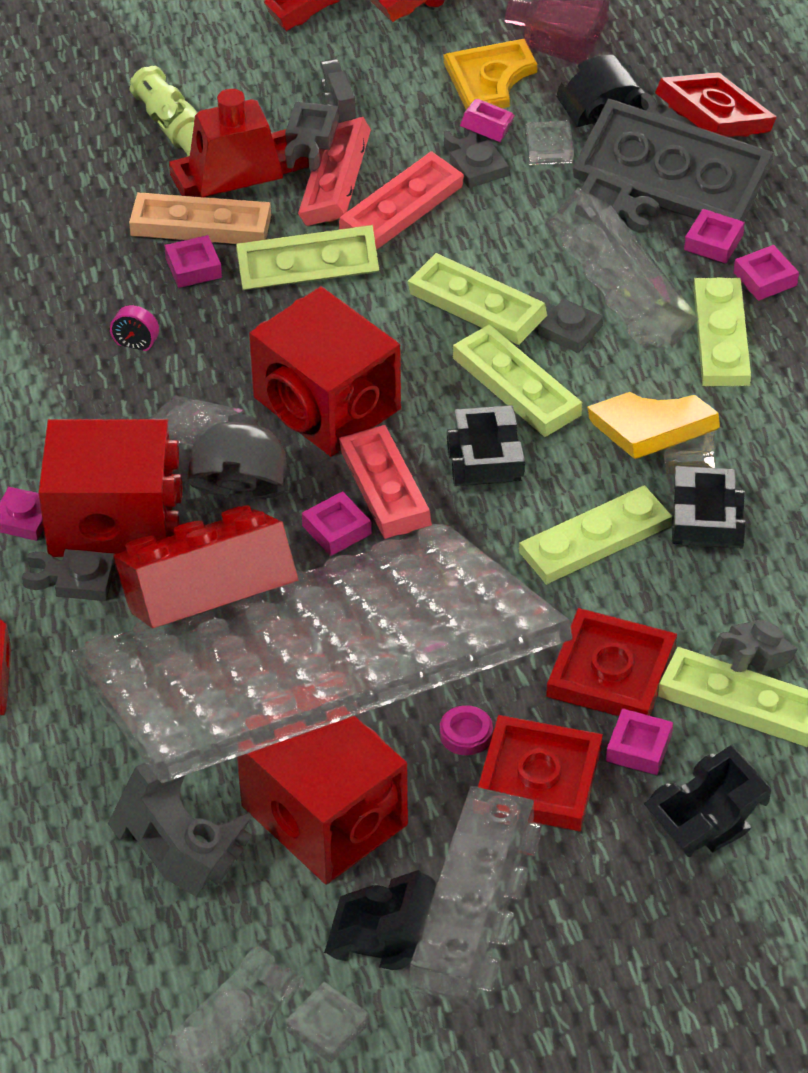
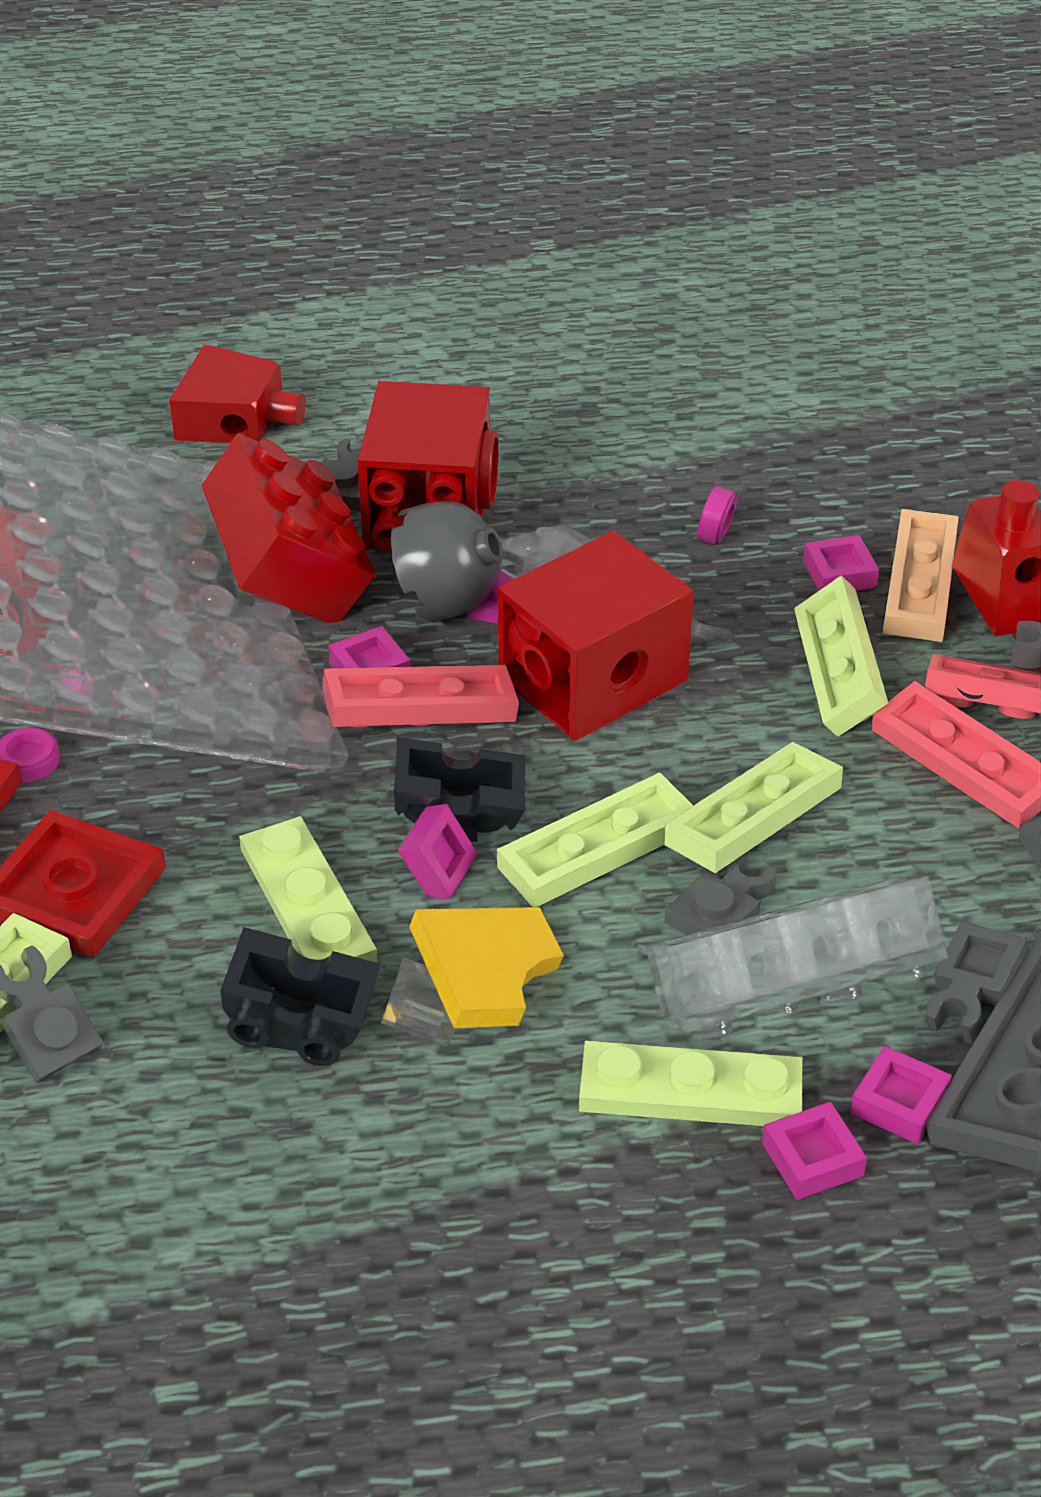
camera: 95 degrees right, 5 degrees down
(550, 458) = (438, 851): none -> dark pink plate

